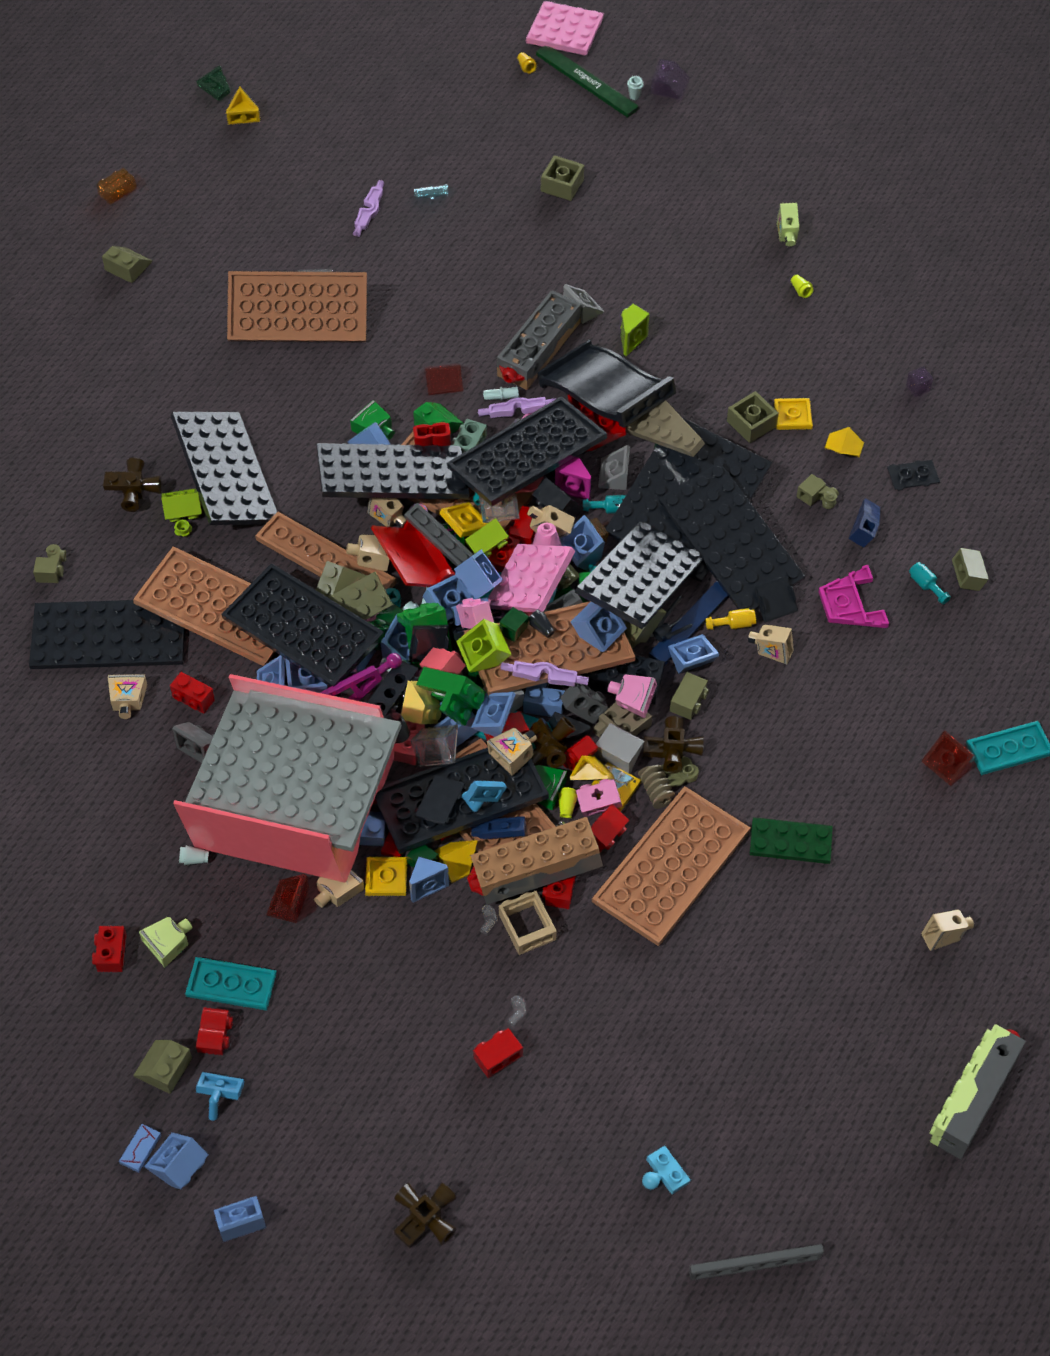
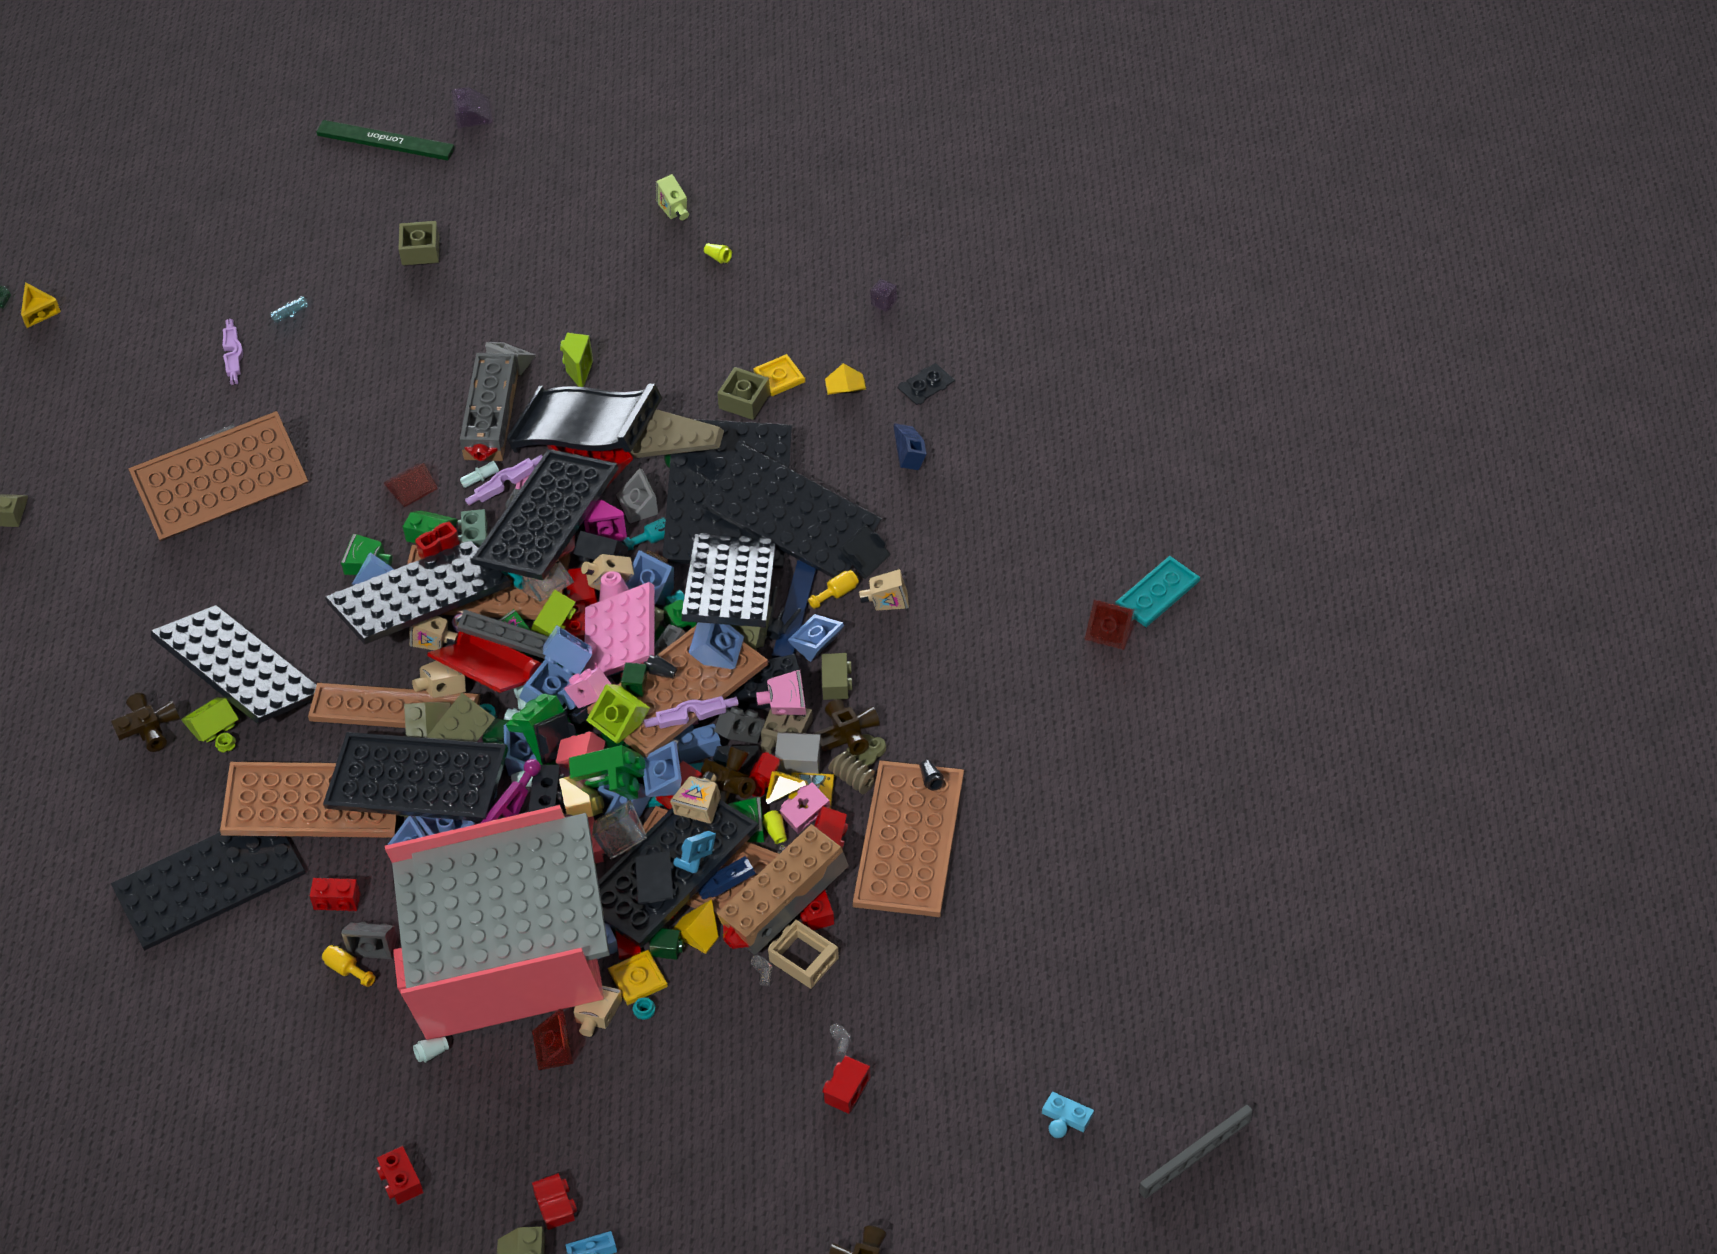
camera: 25 degrees left, 5 degrees down
(51, 568) = (104, 841): olive brick -> none
(127, 693) = (264, 926): tan torso -> none
(166, 939) = (451, 1139): yellowish green torso -> none
(168, 754) = (345, 963): none -> yellow piece
(231, 983) = (542, 1149): teal tile -> none
(375, 900) = (644, 1003): none -> teal plate
(427, 878) = (685, 955): medium blue slope -> none
(463, 519) = (517, 607): yellow tile -> none
(527, 63) = (313, 146): yellow cone -> none
(564, 28) = (332, 97): bright pink plate -> none
(635, 86) = (441, 127): light aqua cone -> none
(718, 821) = (931, 775): none -> black cone
(791, 840) = (1007, 765): dark green plate -> none
(816, 489) = (843, 435): olive brick -> none
(844, 604) = (933, 530): dark pink wing -> none
(925, 577) = (996, 474): teal piece -> none
(946, 929) = (1195, 776): tan torso -> none
(970, 569) = (1030, 446): olive brick -> none
(976, 1090) = (1305, 904): dark grey piece -> none

